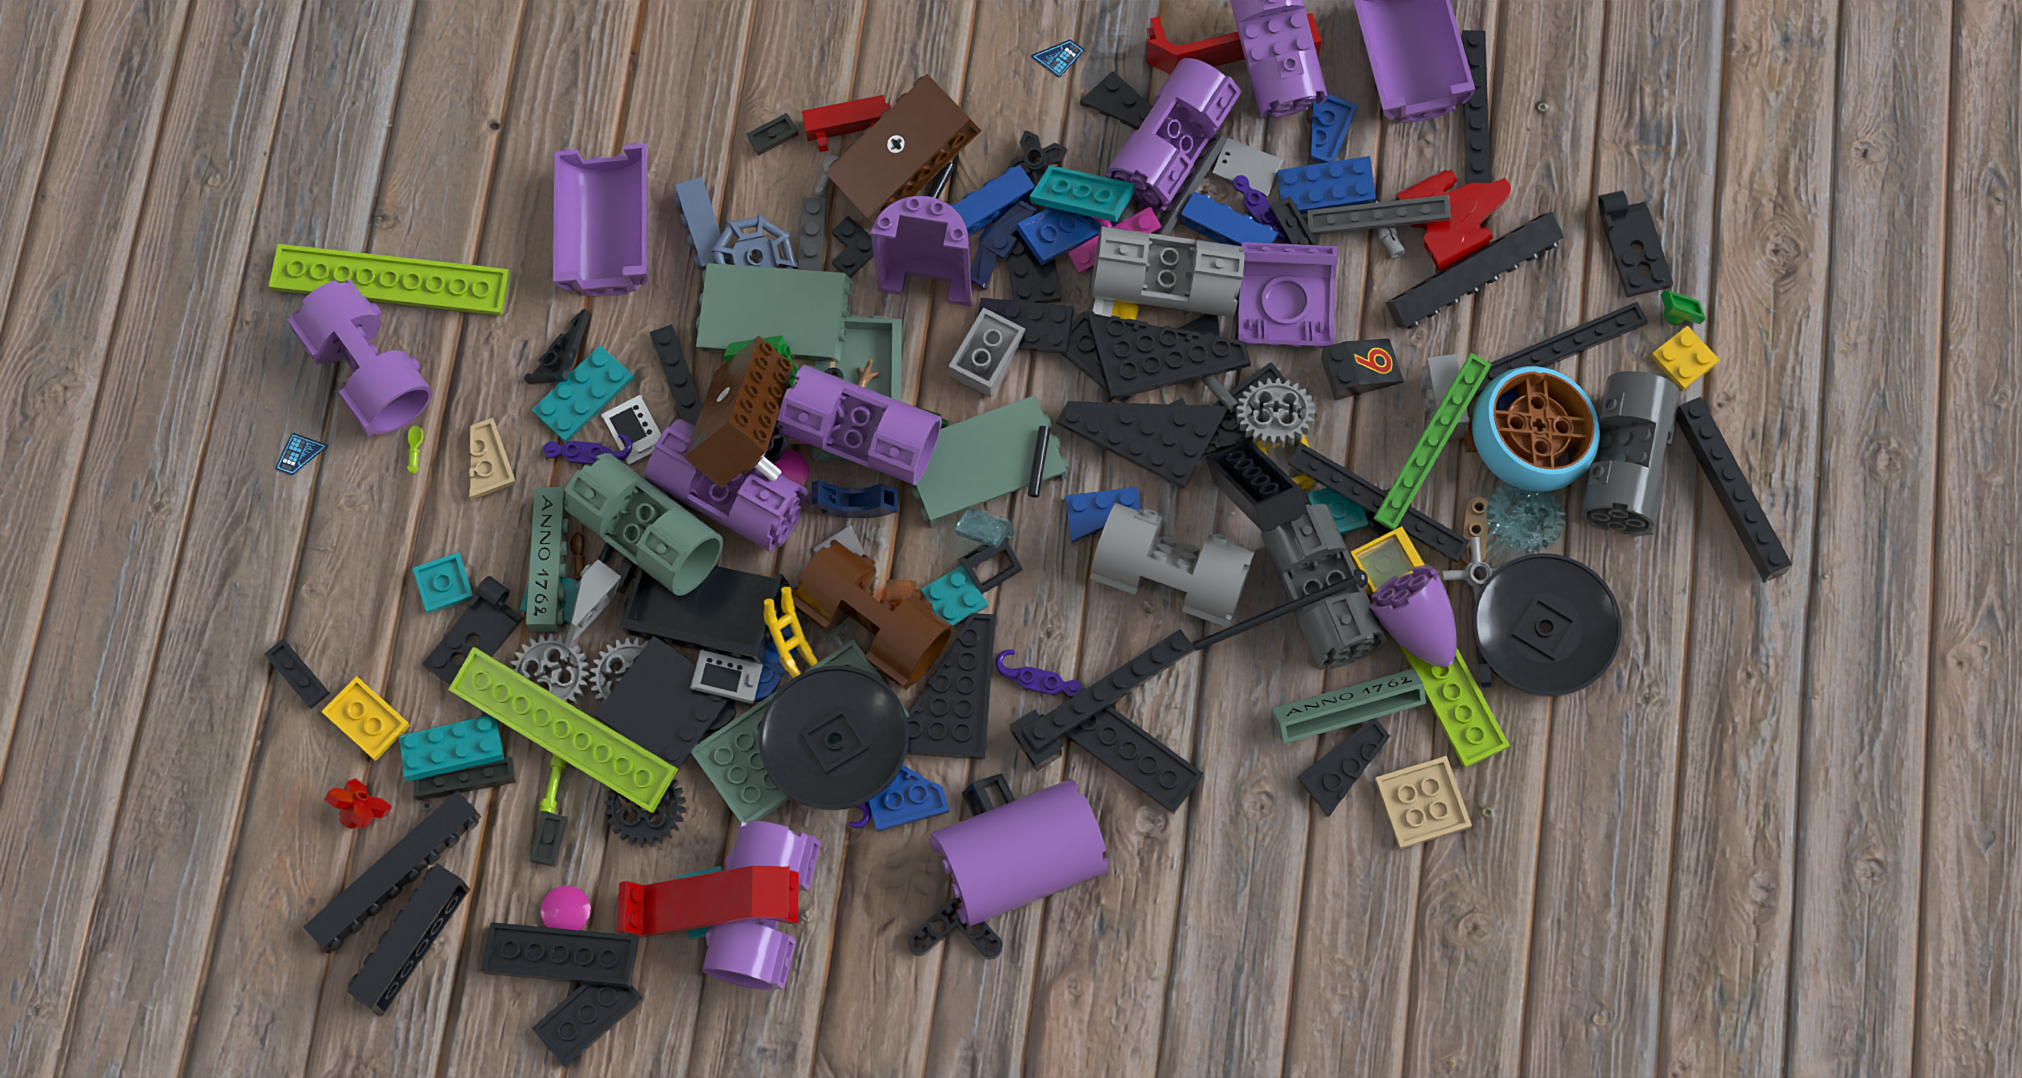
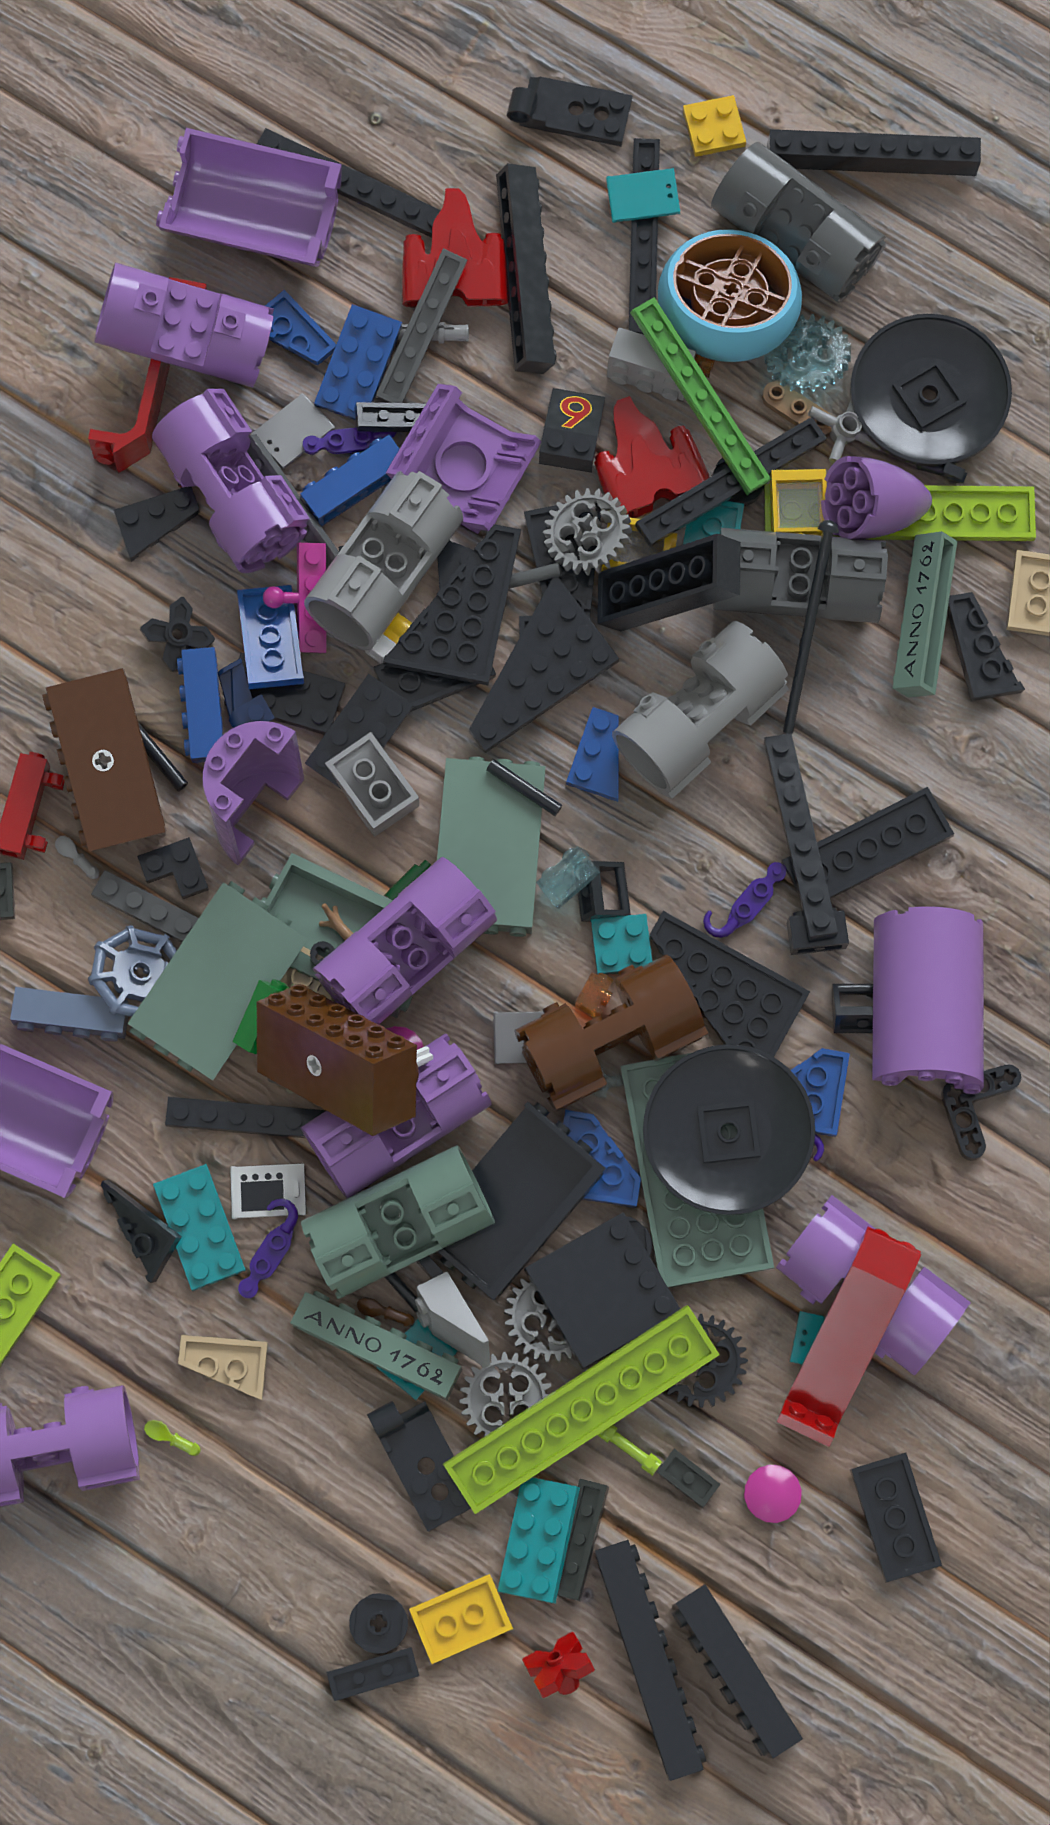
camera: 70 degrees left, 5 degrees up
(298, 453) = (110, 1569): dark blue sticker -> none
(349, 667) = (367, 1610): none -> black plate
(443, 583) = (345, 1470): teal plate -> none
(560, 954) = (823, 1518): black plate -> none
(726, 676) = (605, 1212): light grey container -> none
(797, 640) = (601, 1122): yellow piece -> none
(855, 503) = (471, 992): dark blue arch -> none
(1059, 57) = (64, 556): dark blue sticker -> none
(1082, 193) = (249, 602): teal plate -> none
(1360, 434) = (645, 464): none -> red rock
(1590, 329) = (643, 195): none -> teal container
(1681, 308) = (665, 101): green tile -> none

